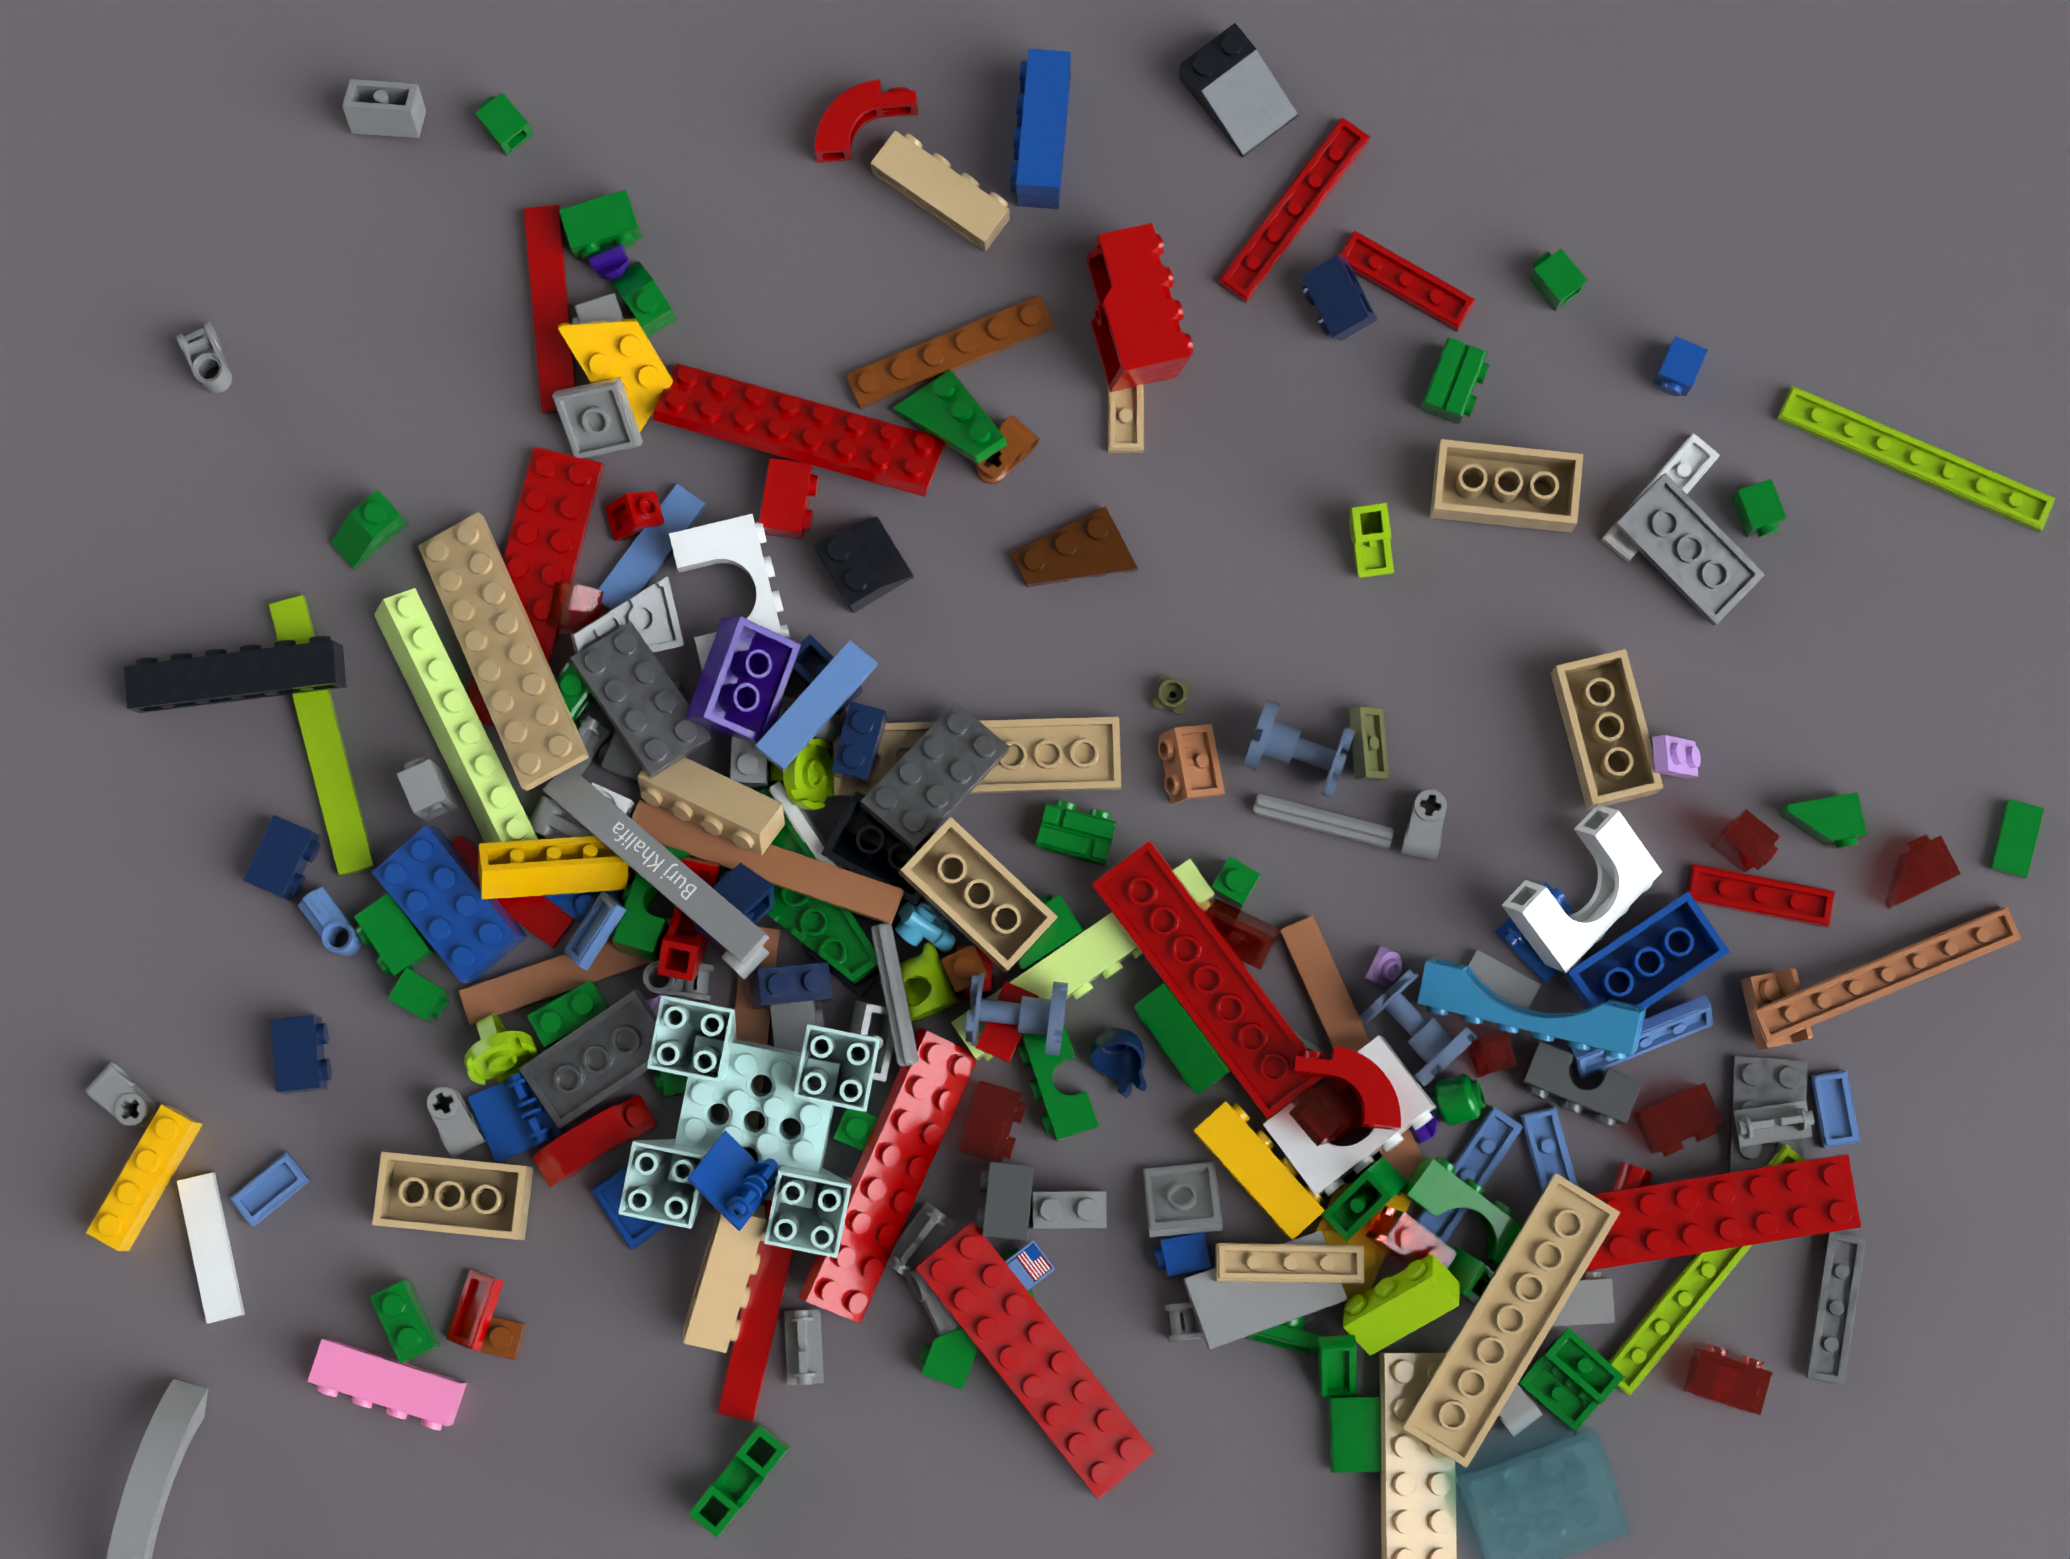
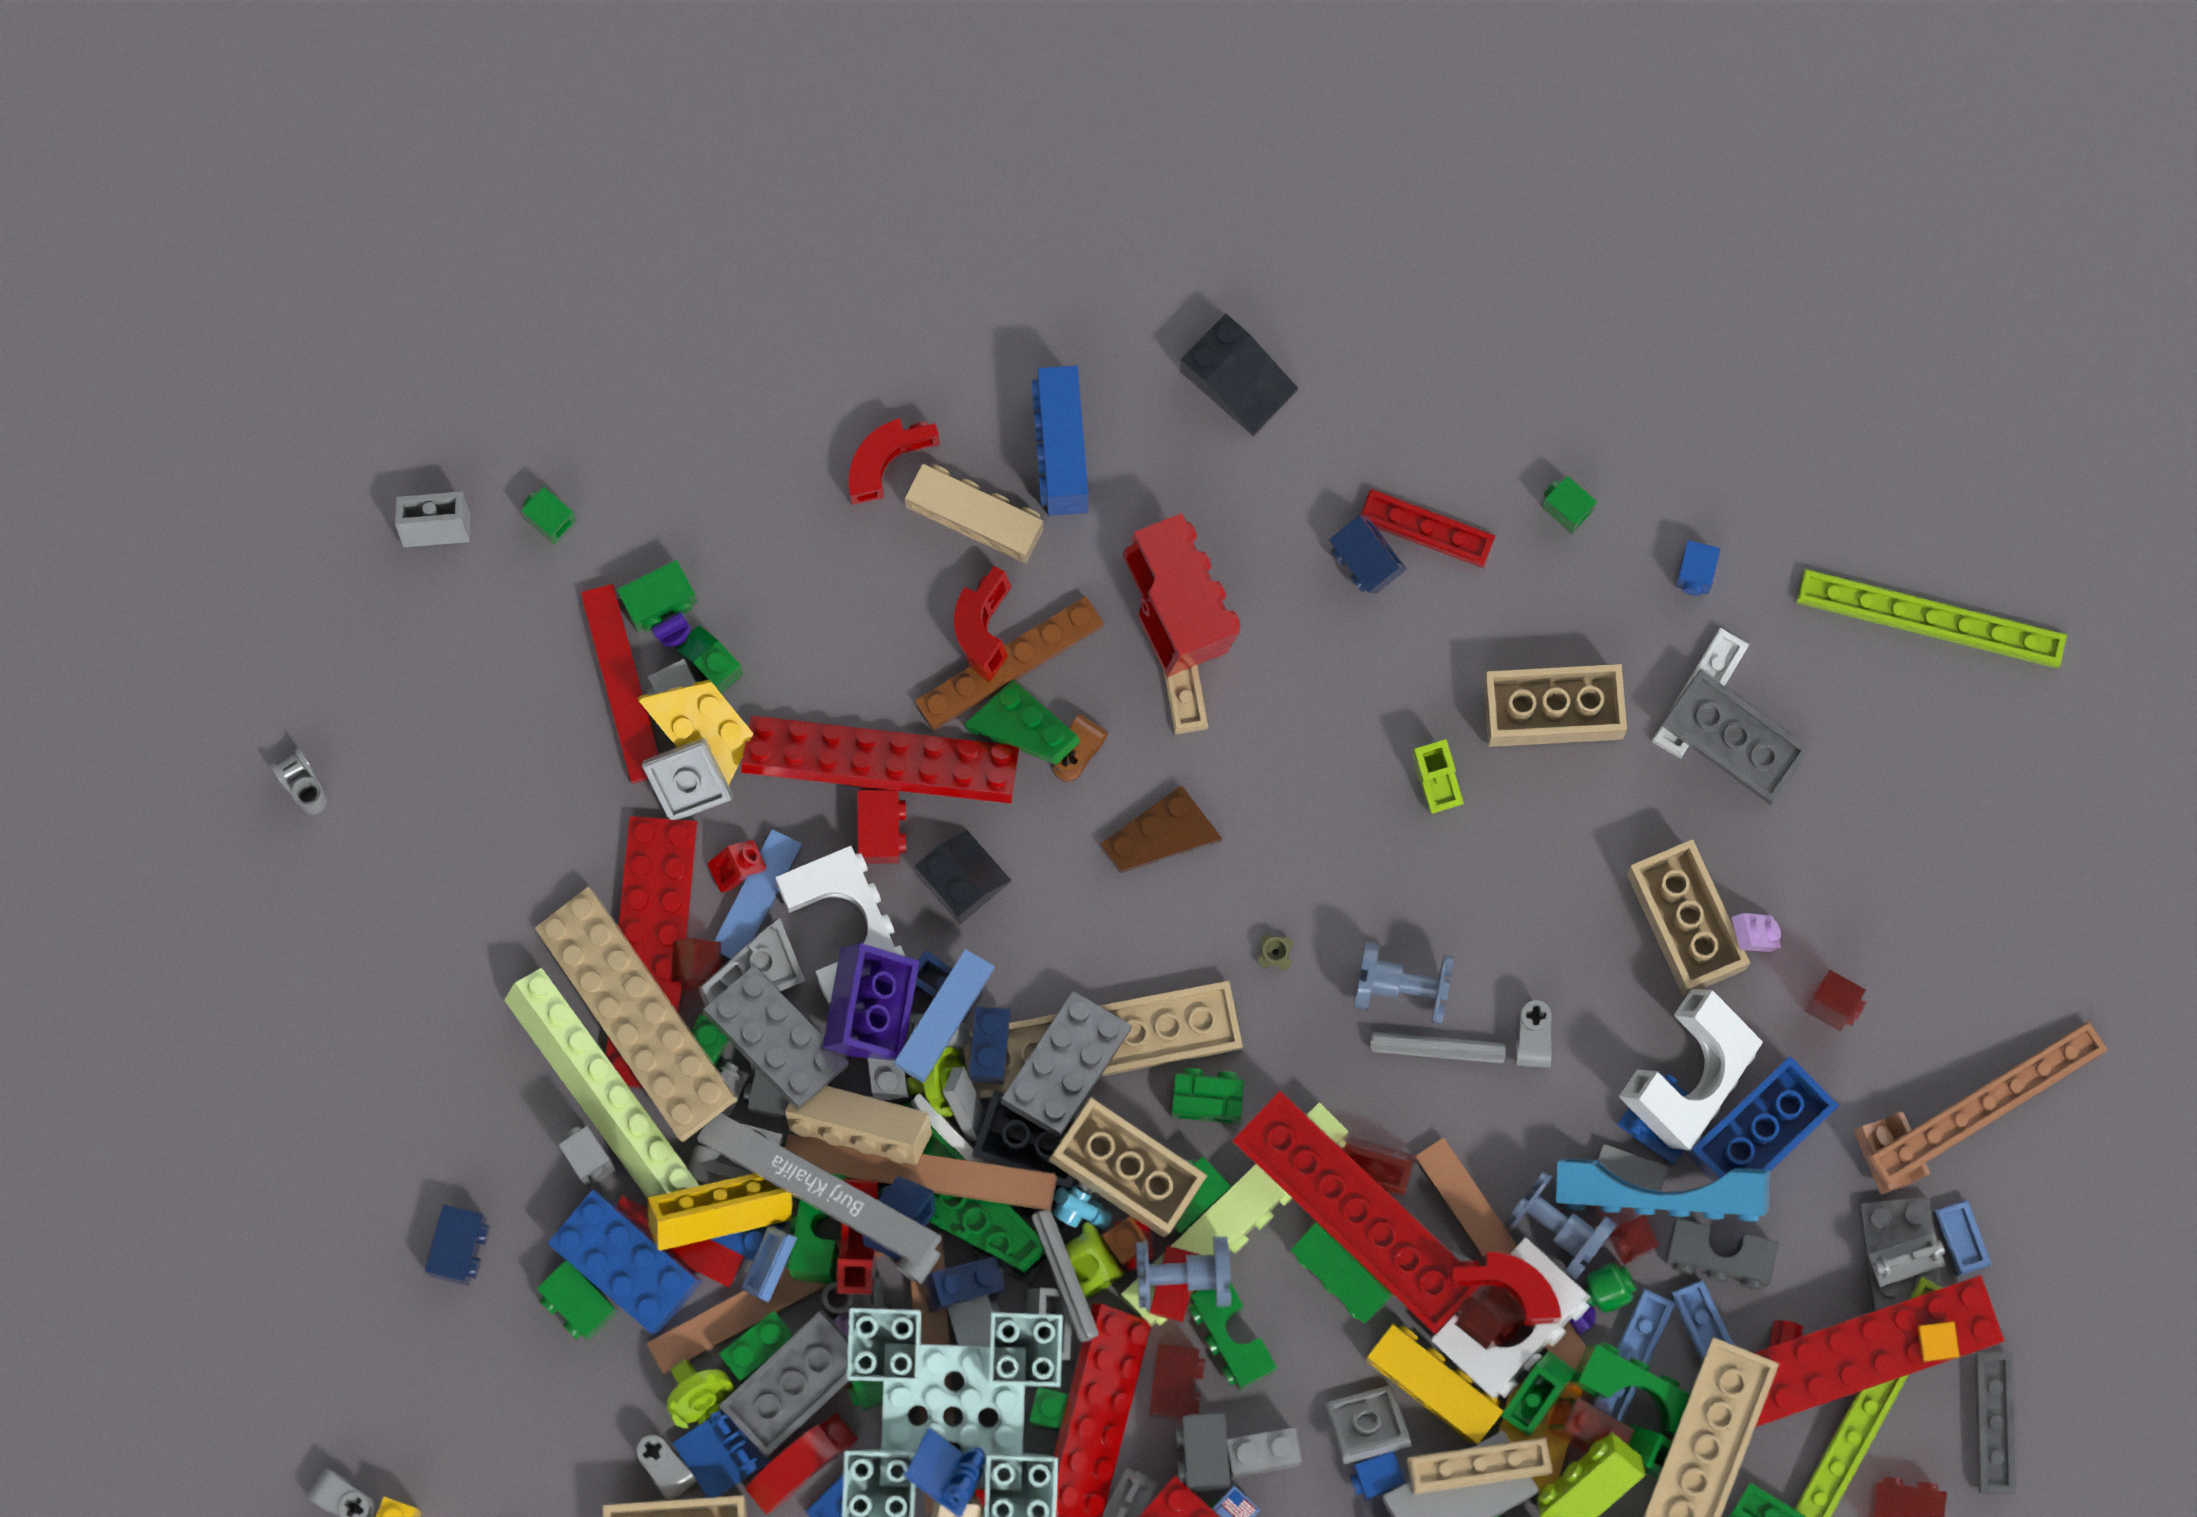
camera: 15 degrees left, 5 degrees down
(235, 675) = (382, 1079): black brick -> none
(300, 1054) = (506, 1429): dark blue brick -> none
(326, 751) = (473, 1123): lime tile -> none
(329, 922) = (511, 1298): medium blue piece -> none
(368, 529) = (484, 920): green slope -> none
(419, 996) = (611, 1354): green brick -> none
(823, 798) = (964, 1103): none -> light grey tile
(918, 302) = (971, 621): none -> red arch
(1120, 1057) = (1285, 1300): dark blue piece -> none
(1190, 763) = (1303, 1013): nougat bracket -> none
(1235, 883) = (1366, 1118): green brick -> none
(1294, 210) = (1310, 478): red tile -> none
(1369, 743) = (1468, 967): olive plate -> none
(1385, 967) = (1520, 1175): lavender plate -> none
(1454, 381) = (1488, 615): green brick -> none
(1589, 1302) = (1764, 1457): light grey brick -> none
(1655, 1032) = (1782, 1194): medium blue tile -> none
(1679, 1119) = (1818, 1271): clear red brick -> none
(1759, 509) = (1794, 689): green brick -> none
(1760, 895) = (1859, 1050): red tile -> none
(1791, 1216) = (1938, 1341): none -> light orange tile
(1829, 819) = (1910, 967): green slope -> none
(1921, 869) = (2003, 1000): clear red slope -> none
(2016, 838) = (2087, 957): green tile -> none

